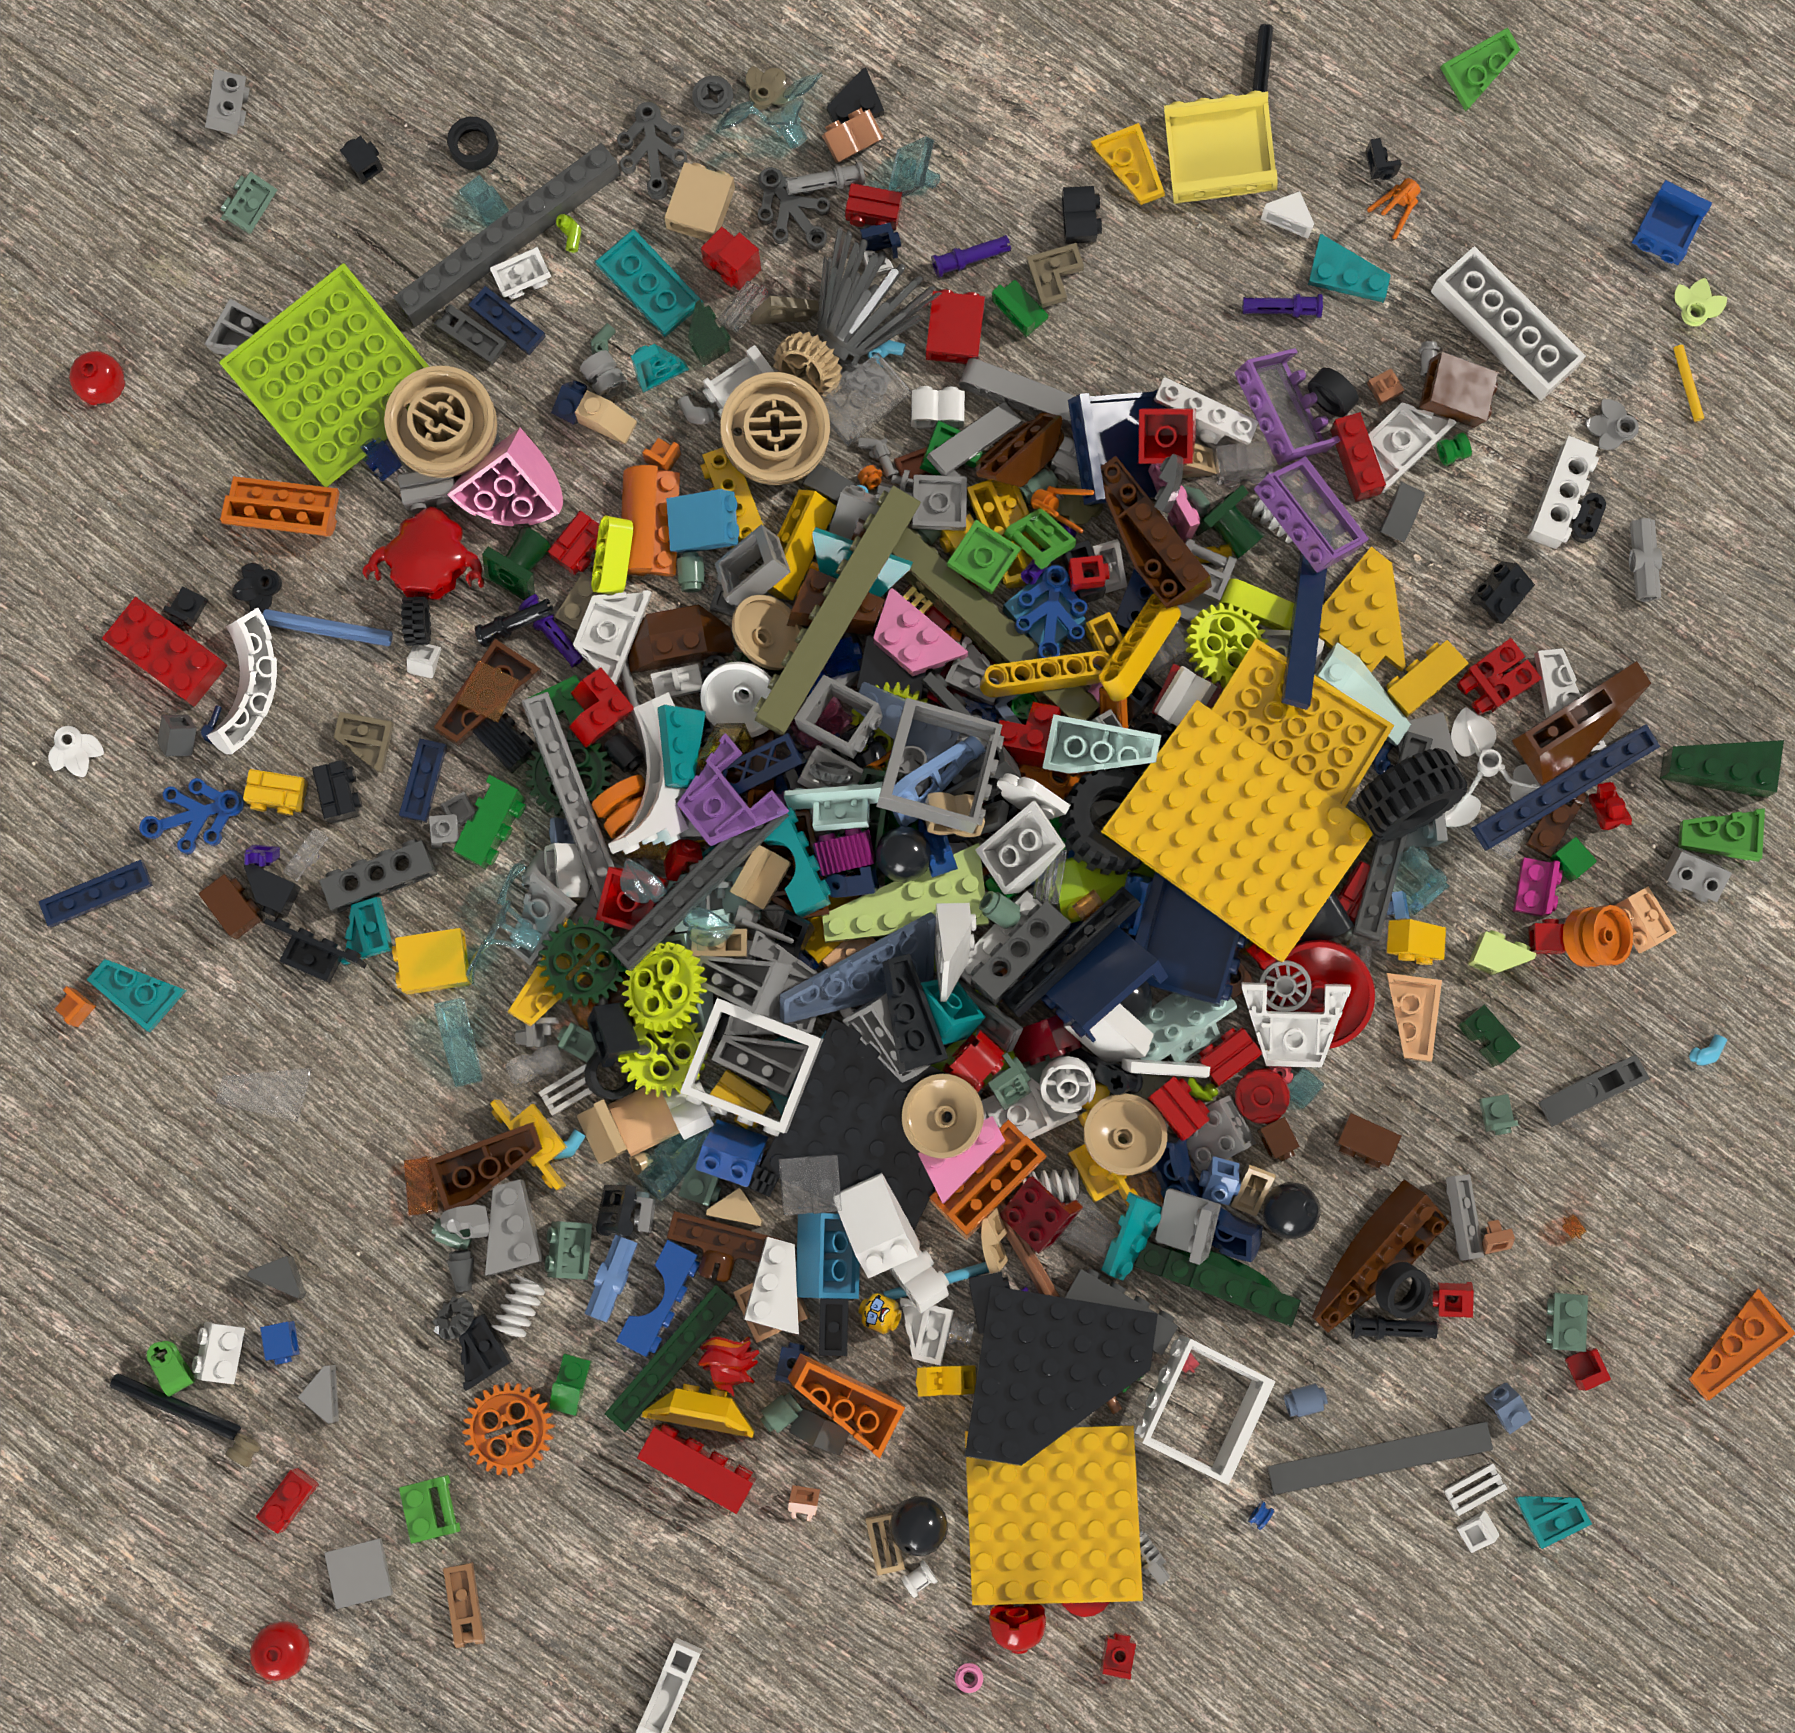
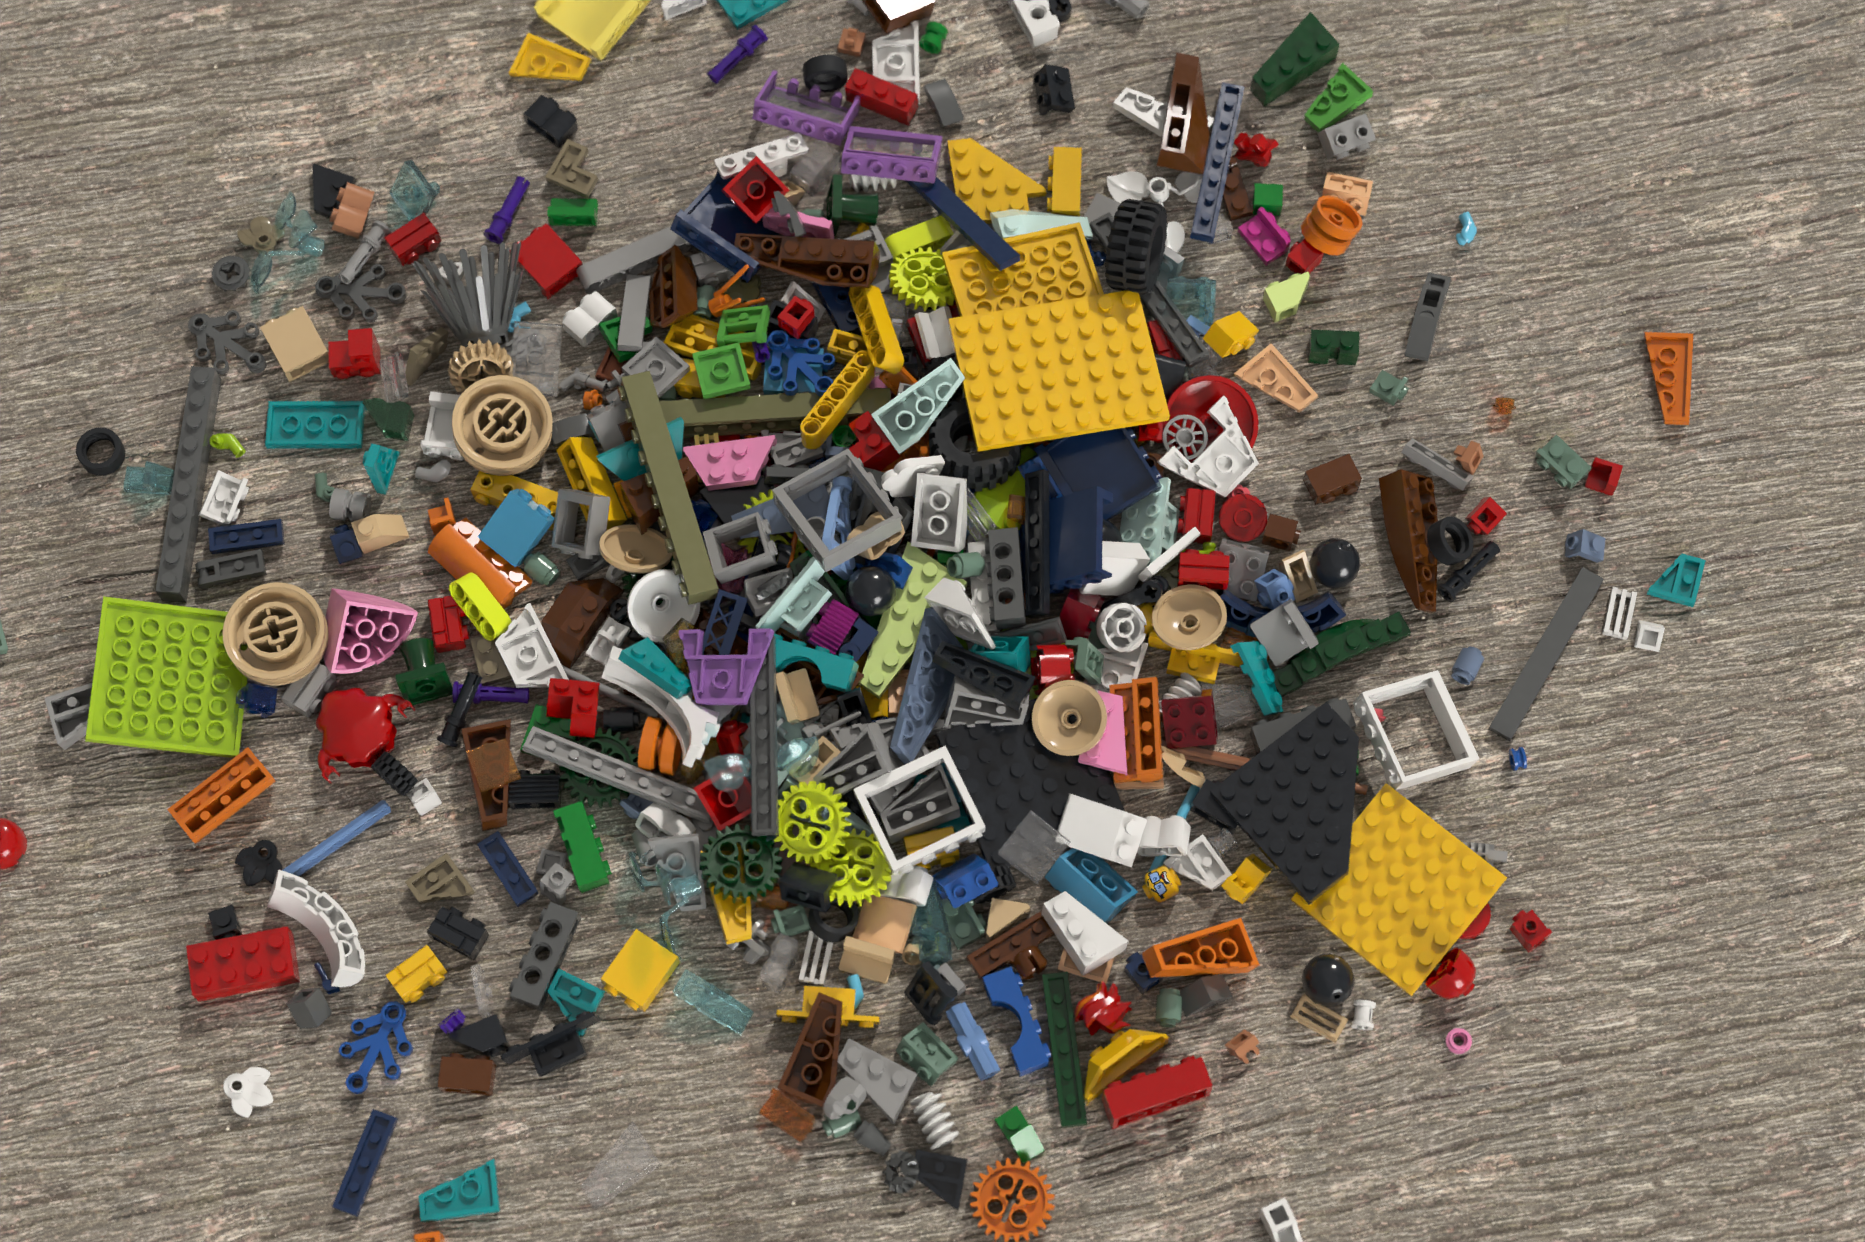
camera: 45 degrees left, 10 degrees down
(362, 158) = (34, 531): black brick -> none
(833, 1327) = (1143, 919): black brick -> none
(880, 238) = (439, 246): dark blue bracket -> none
(1304, 1087) = (1262, 488): clear light blue slope -> none
(1490, 682) = (1108, 148): red hips -> none

